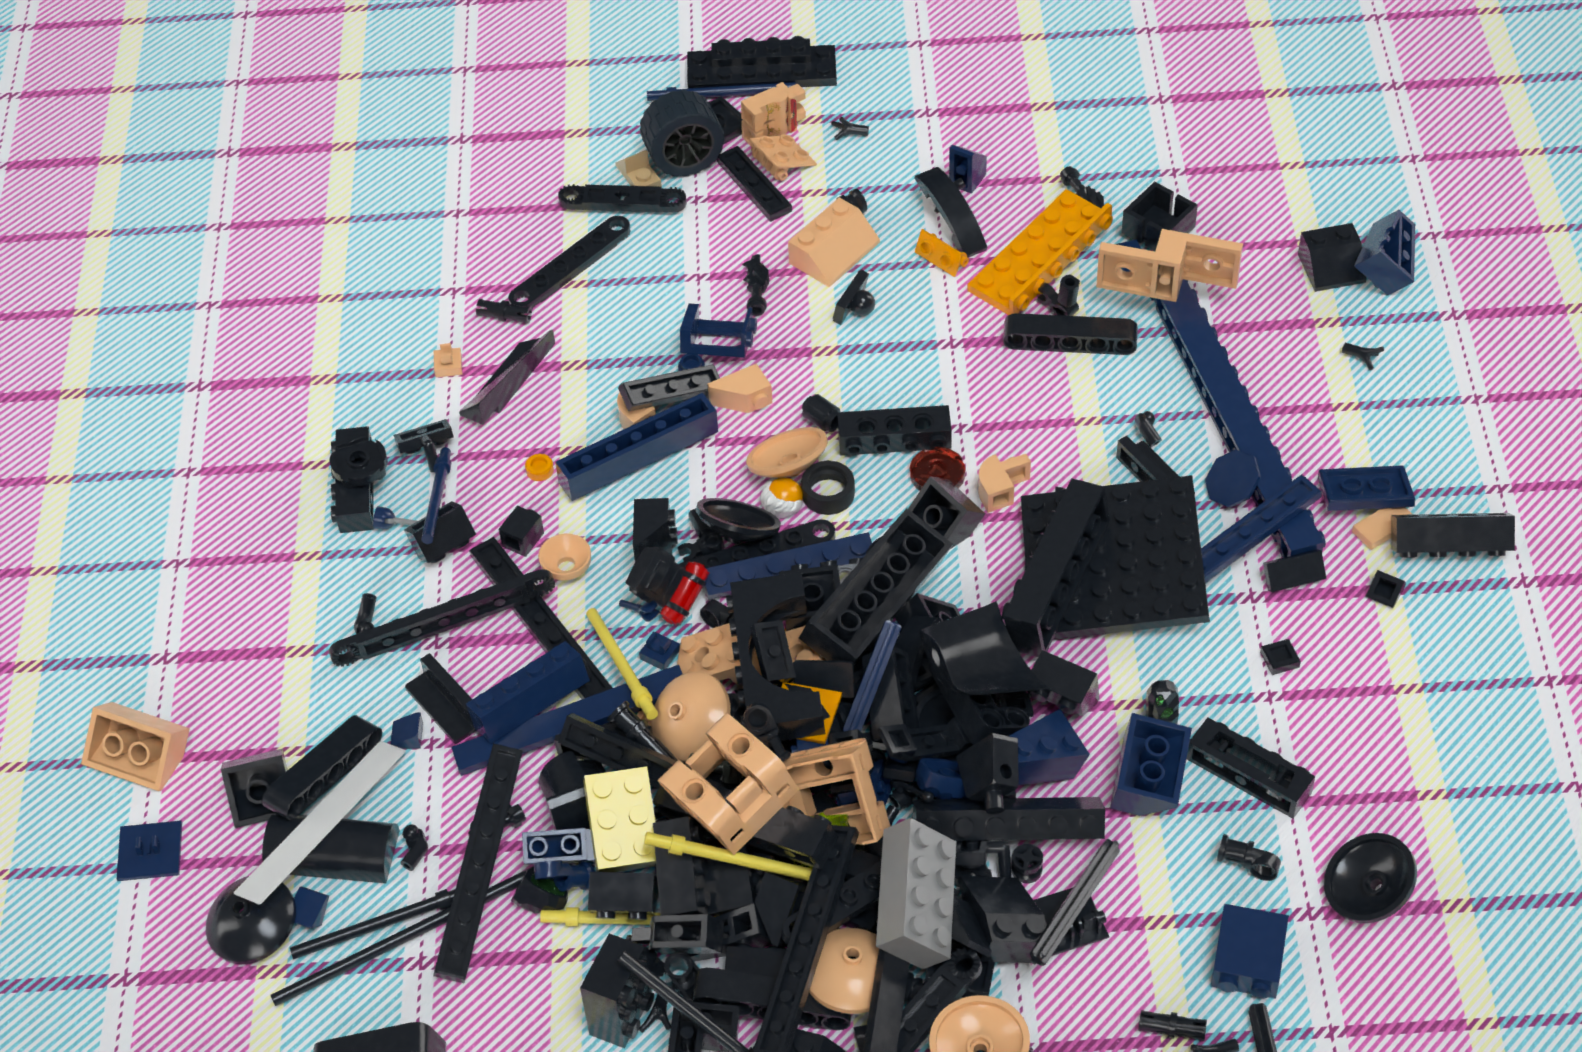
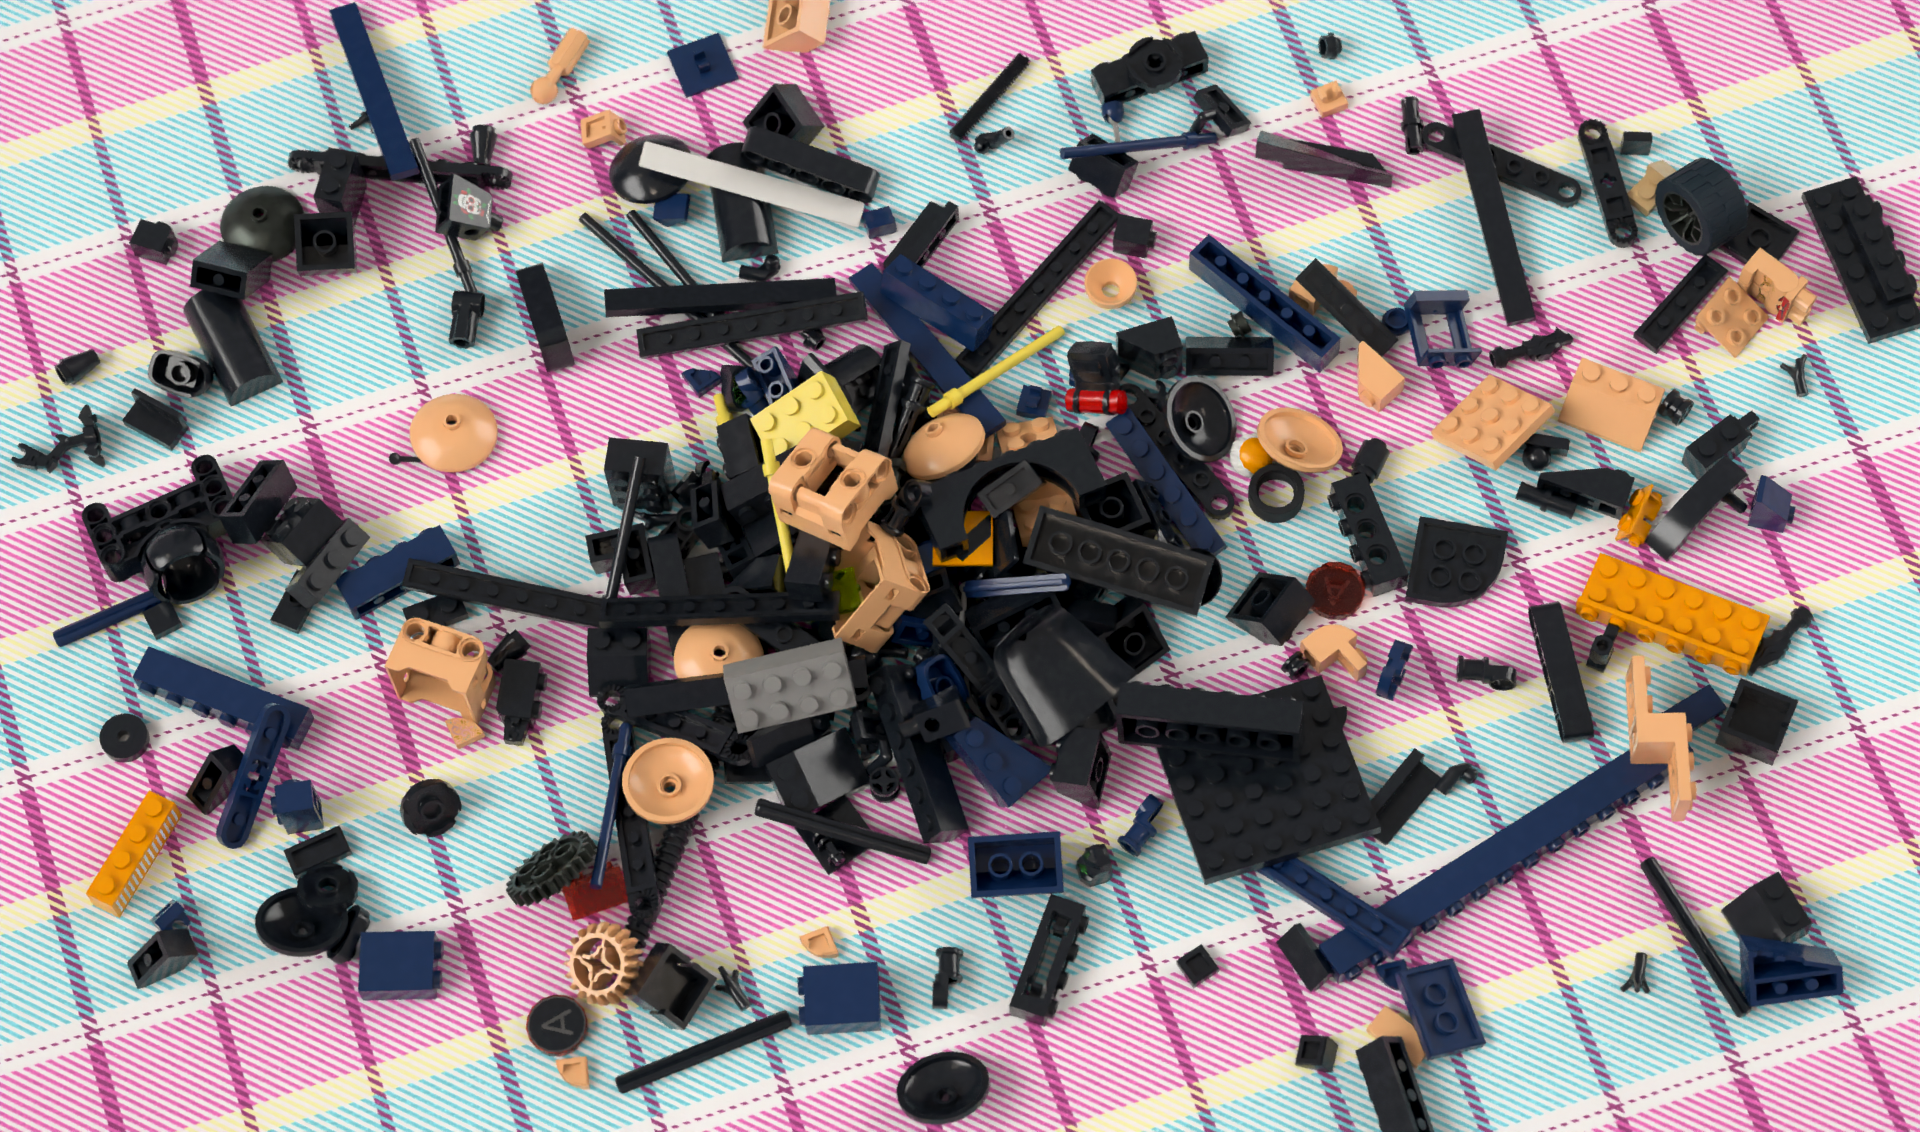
camera: 75 degrees right, 15 degrees up
(83, 979) = (561, 64): none -> light nougat piece
(180, 955) = (602, 129): none -> light nougat bracket
(313, 607) = (988, 97): none -> black axle
(394, 352) = (1329, 46): none -> black plate
(432, 888) = (713, 297): none -> black tile
(441, 617) = (1014, 211): black plate -> none
(514, 930) = (701, 380): none -> dark blue tile
(539, 467) = (1222, 226): light orange tile -> none
(595, 169) = (1636, 143): none -> black tile
(621, 274) = (1493, 217): none -> black tile
(646, 475) = (1239, 324): none -> pearl dark grey plate
(680, 481) = (1229, 356): none -> black panel
(718, 91) = (1786, 184): dark blue bar -> none
(822, 317) = (1492, 422): none -> light nougat plate
(899, 186) = (1722, 440): none -> black hinge
(905, 306) = (1546, 500): none -> black pin
(910, 269) = (1594, 489): none -> black slope
(939, 377) = (1454, 562): none -> black plate
(1005, 512) = (1295, 665): none -> black bush
(1038, 436) = (1394, 671): none -> dark blue plate
(1053, 384) = (1497, 676): none -> black connector
(1133, 662) = (1142, 827): none -> dark blue connector
(1172, 1025) = (749, 948): black pin -> none
(1181, 961) = (820, 943): none -> light nougat tile
(1232, 478) = (1404, 872): dark blue piece -> none
(1322, 517) = (1386, 973): none -> dark blue tile
(1336, 308) = (1696, 937): none -> black axle

